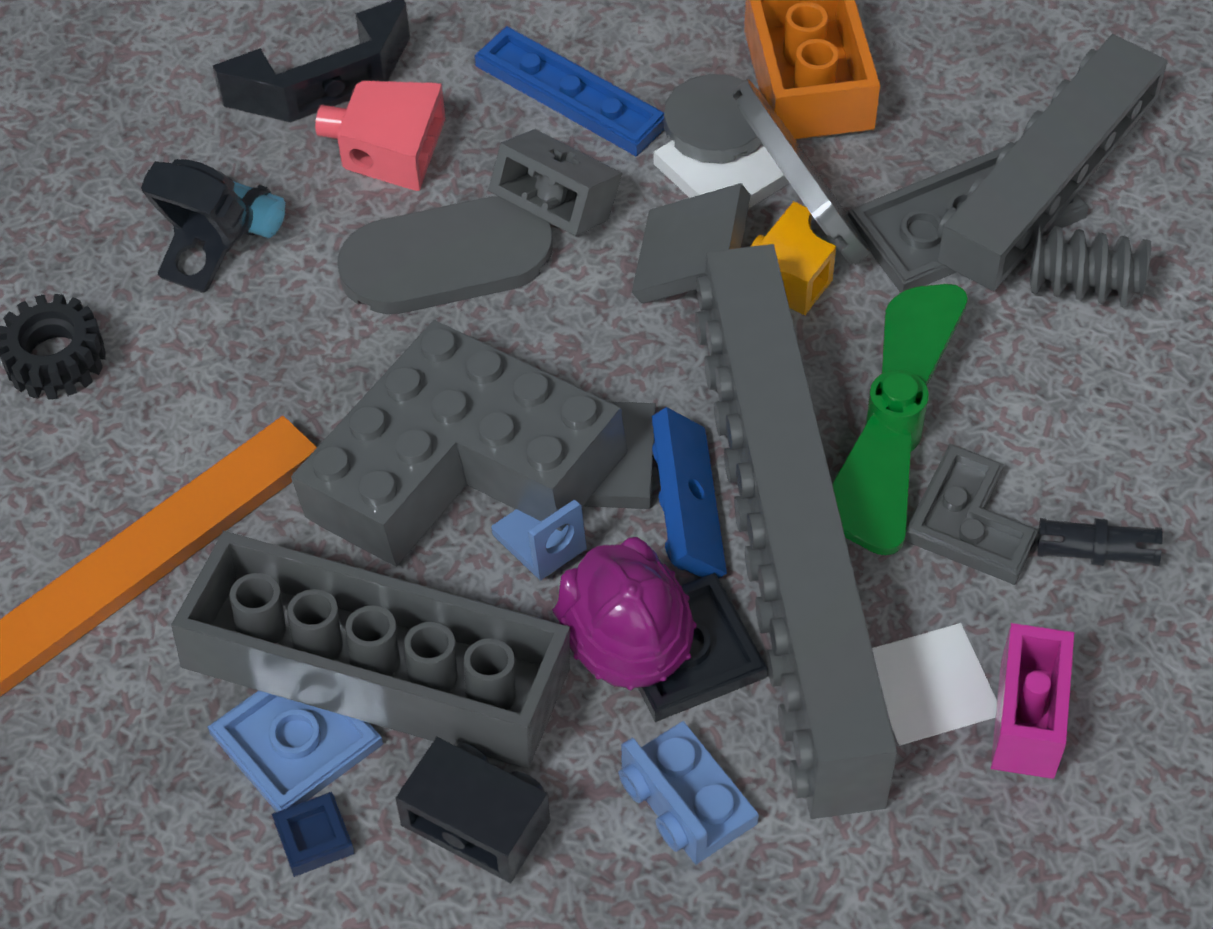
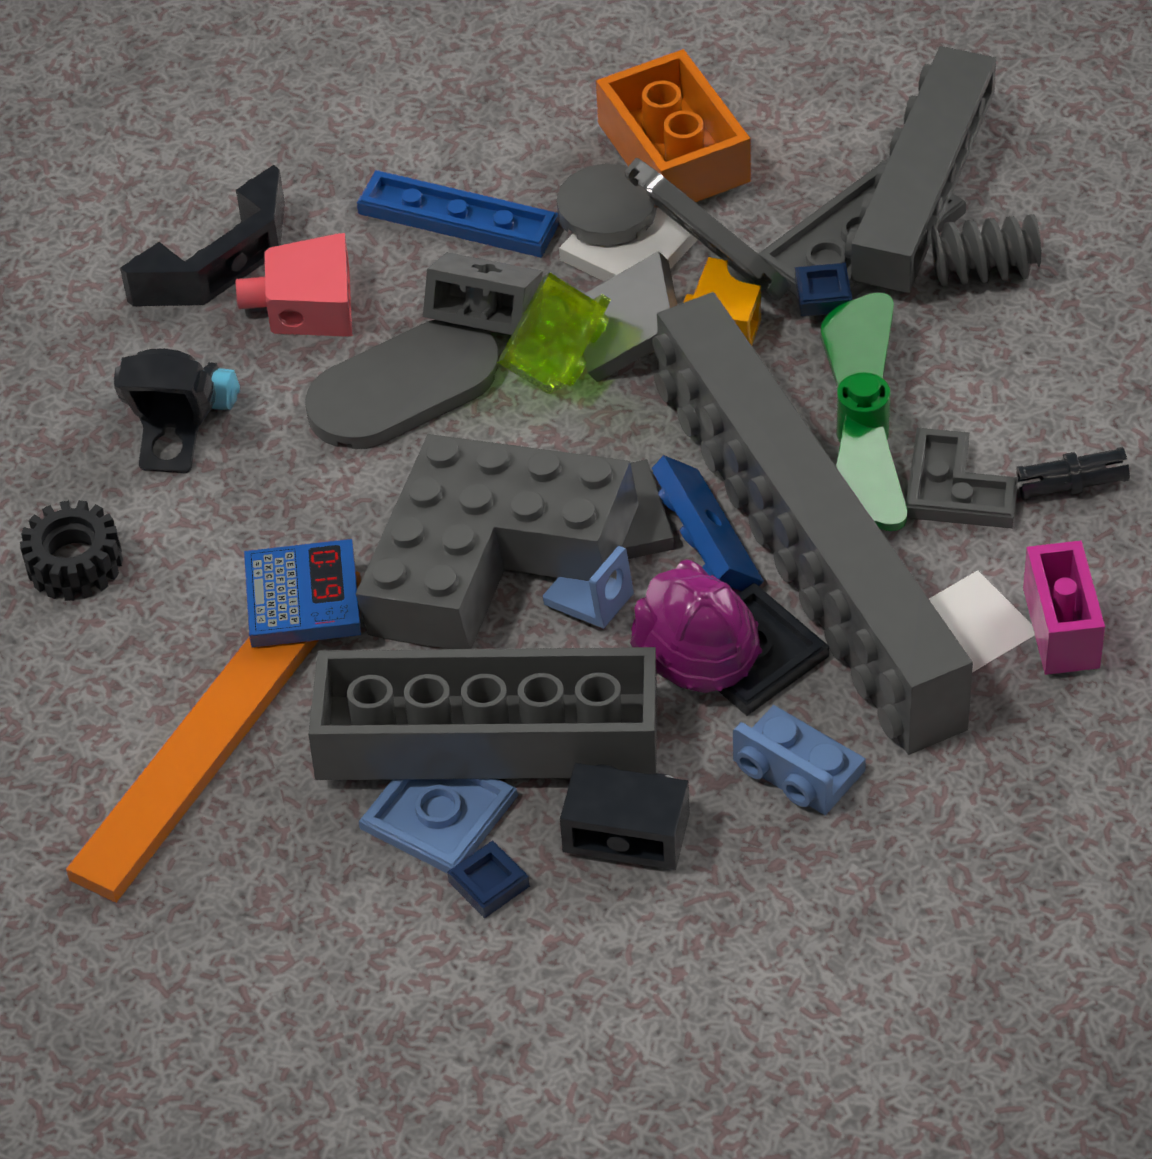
camera: 15 degrees left, 5 degrees down
(247, 456) = (301, 593): none -> blue tile
(608, 243) = (554, 335): none -> clear neon green bracket
(902, 263) = (822, 288): none -> dark blue tile

